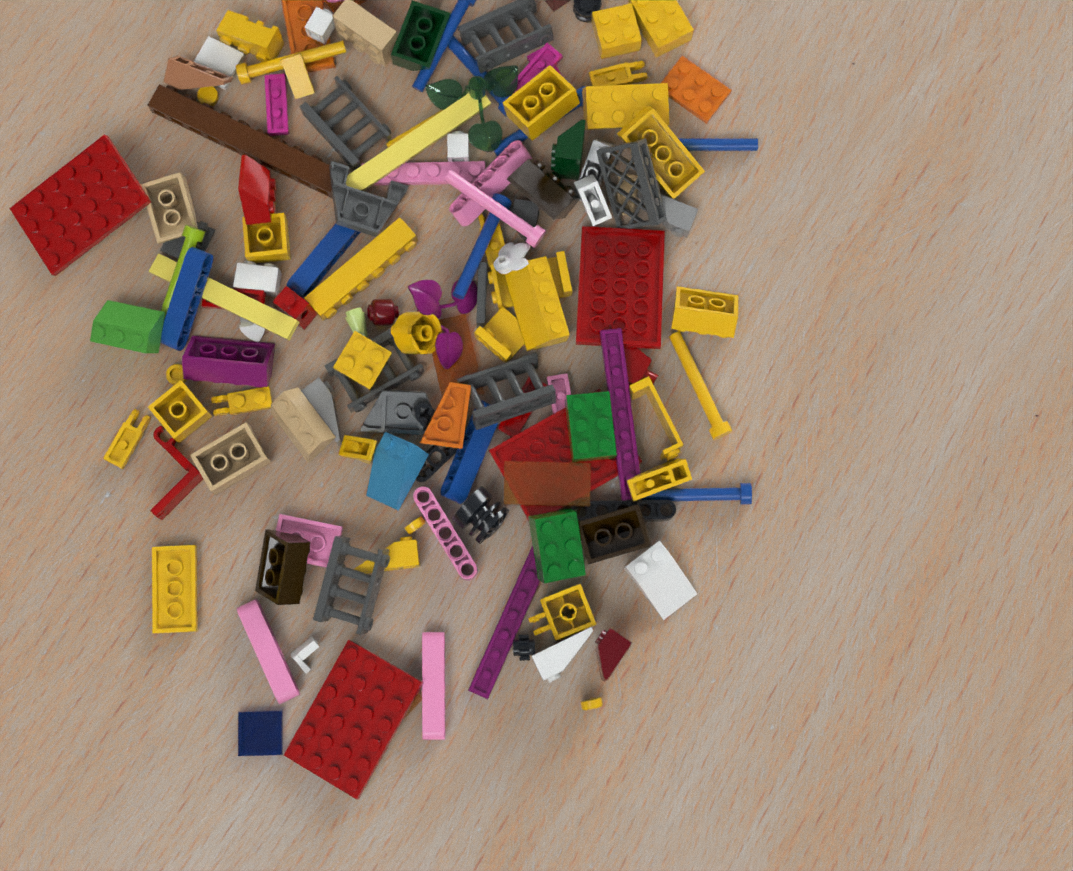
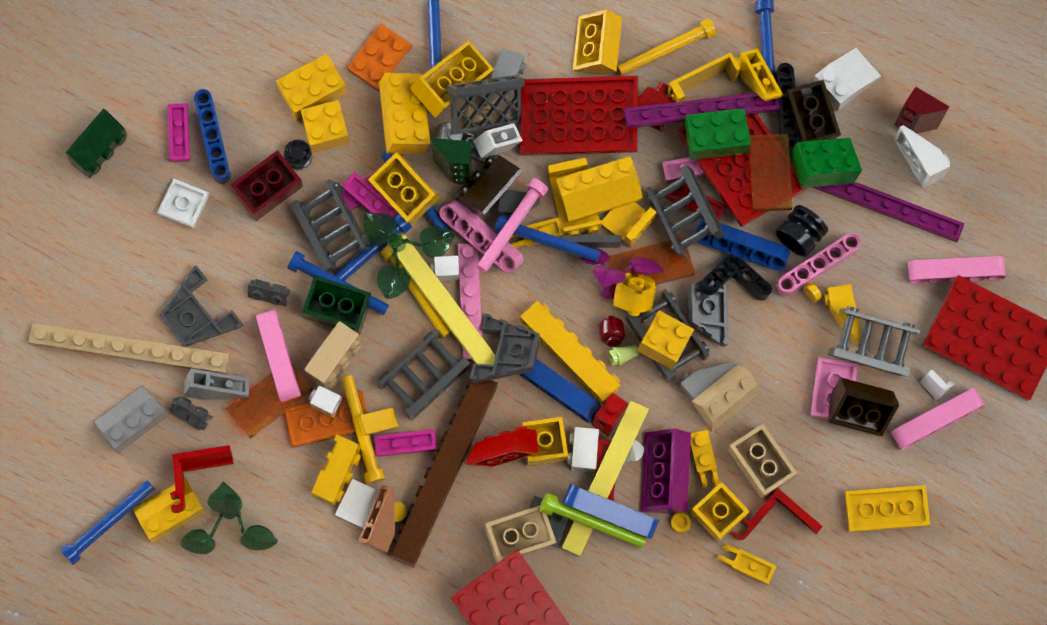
camera: 95 degrees left, 5 degrees down
(128, 327) = (641, 565): bright green slope -> none
(260, 733) = (1011, 423): clear blue tile -> none
(357, 448) = (745, 344): yellow slope -> none
(394, 470) = (765, 310): dark azure slope -> none
(449, 418) = (715, 259): orange wing -> none
(511, 257) = (556, 207): white plate -> none
(524, 647) = (916, 192): black gear -> none
(554, 607) = (882, 166): yellow hinge -> none
(592, 703) = (961, 133): yellow tile -> none
(618, 74) = (369, 127): yellow hinge -> none

